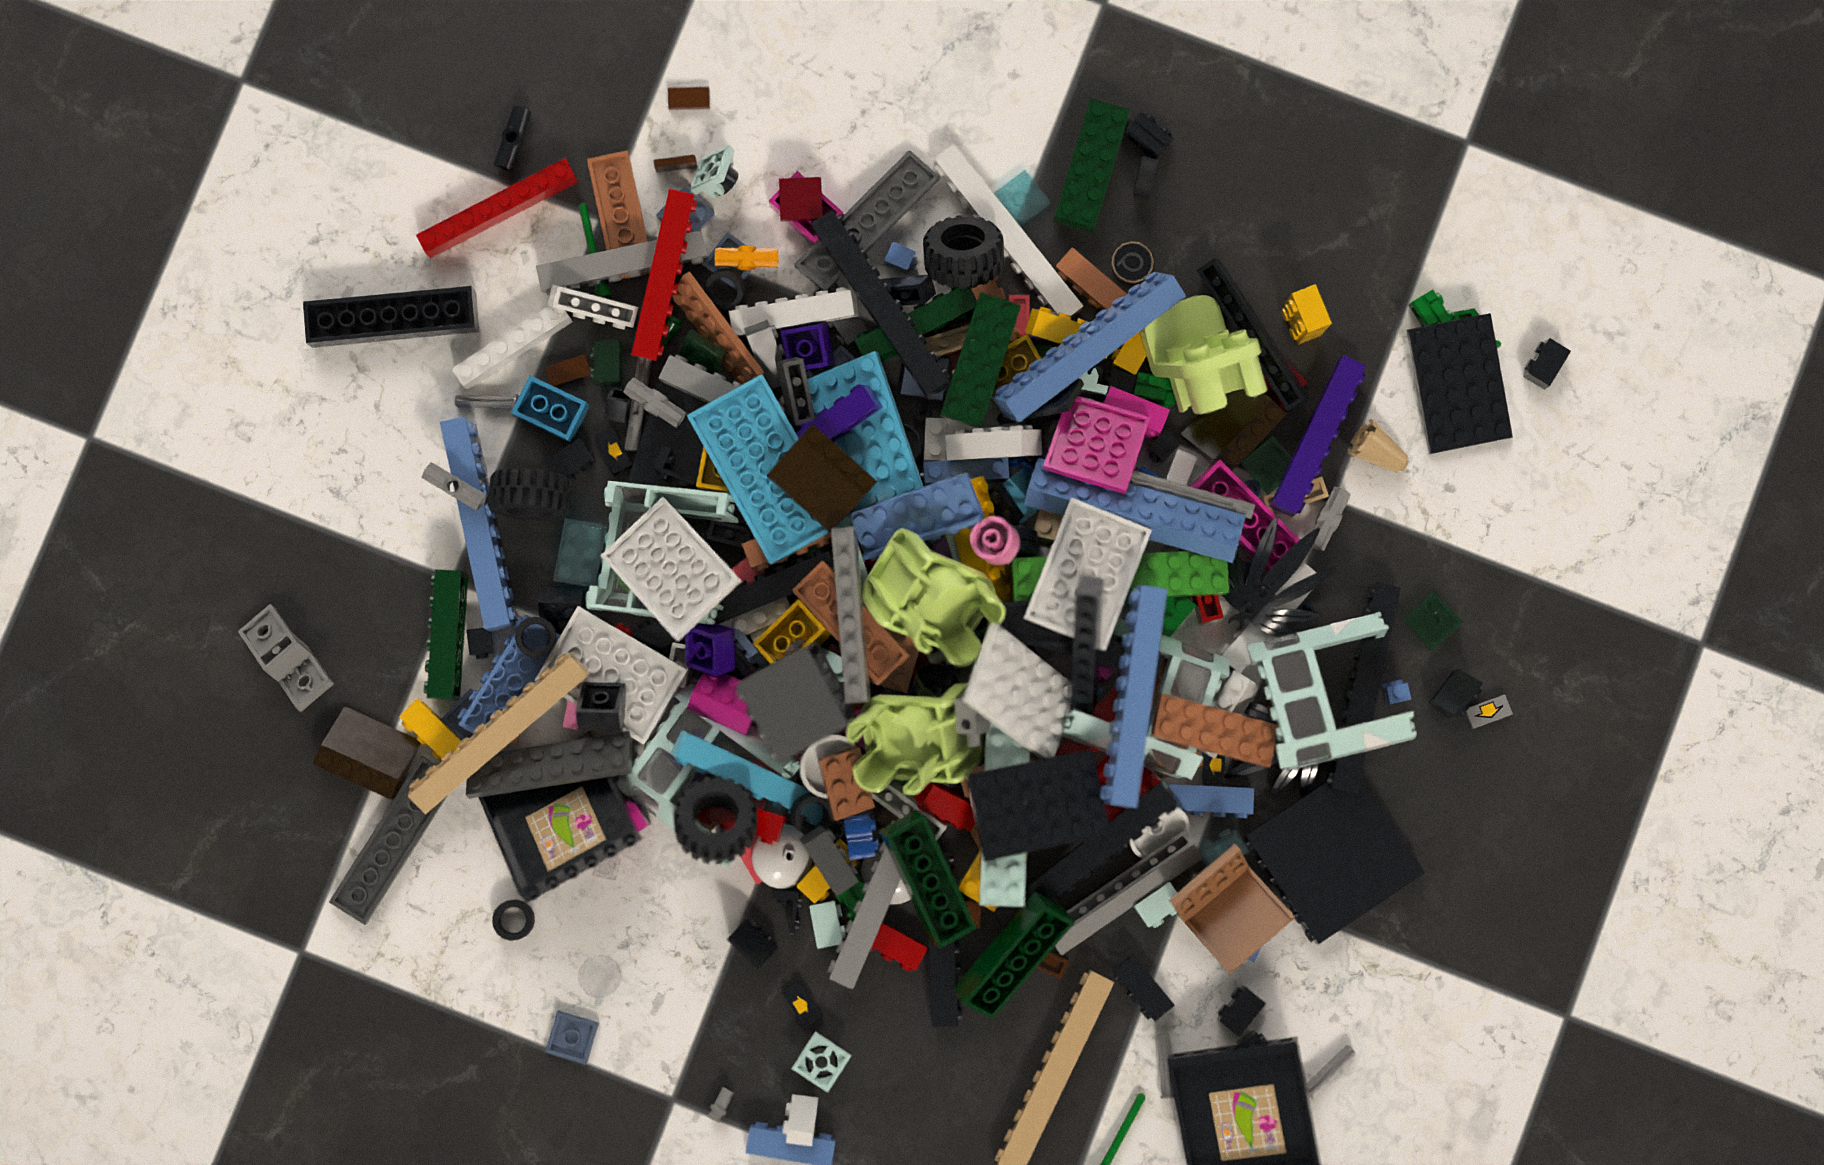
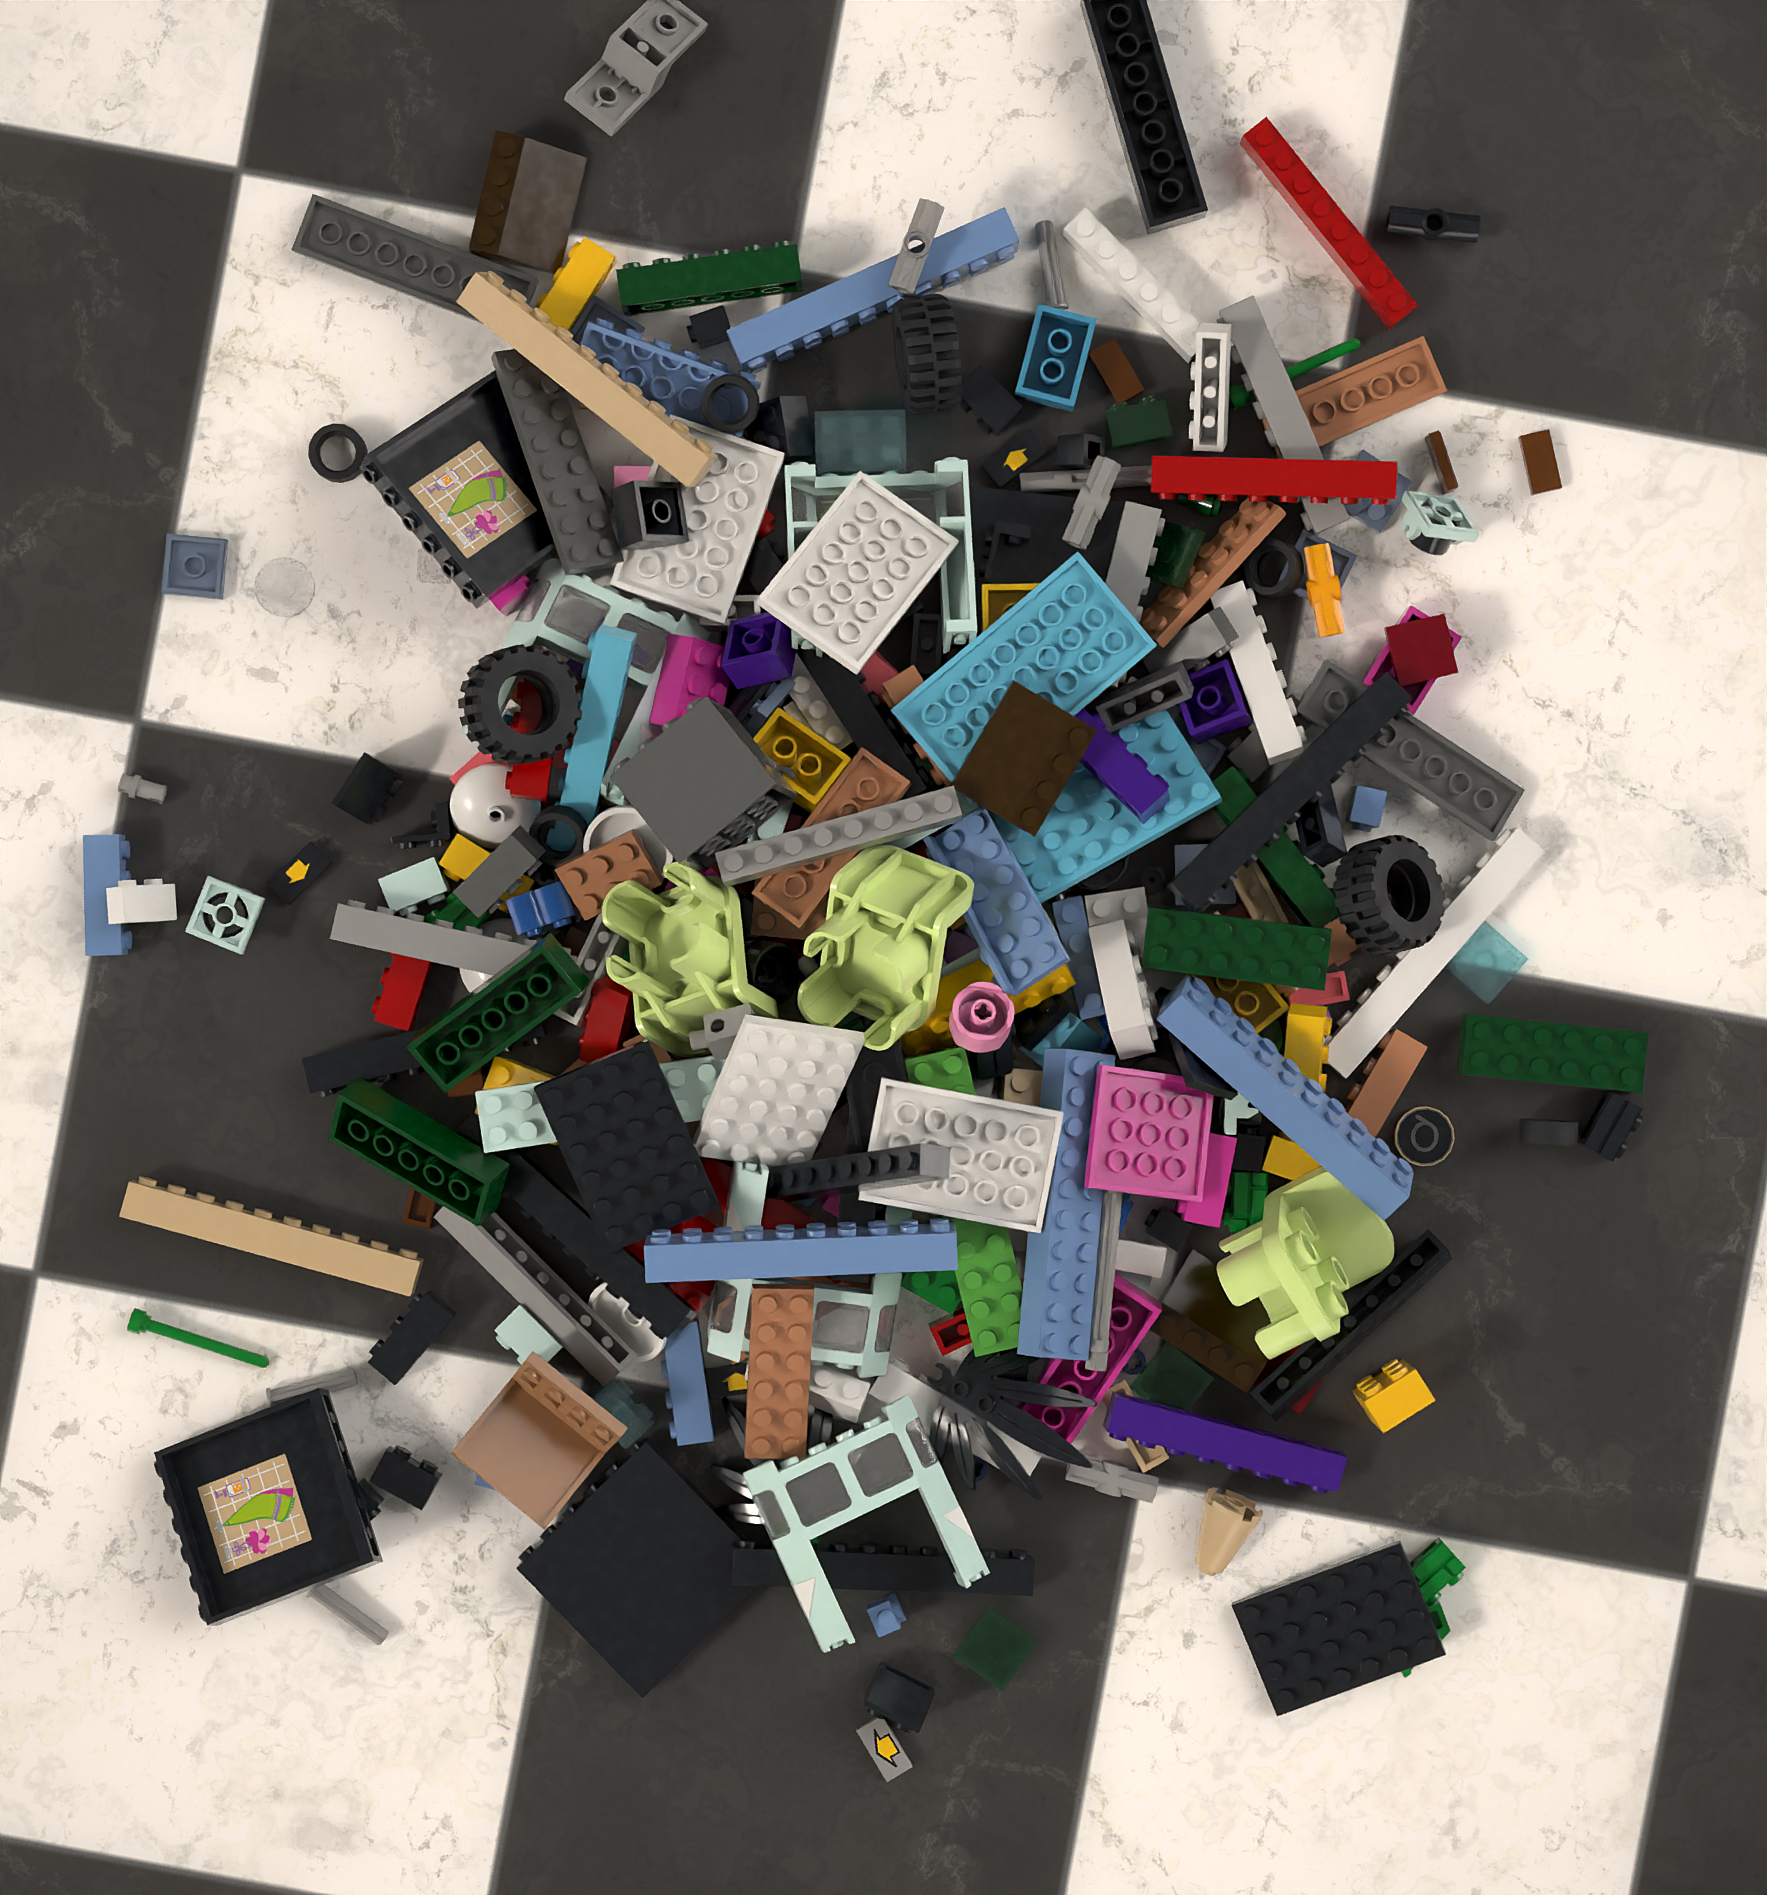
camera: 80 degrees right, 5 degrees up
(1546, 363) = (1391, 1746): black brick -> none

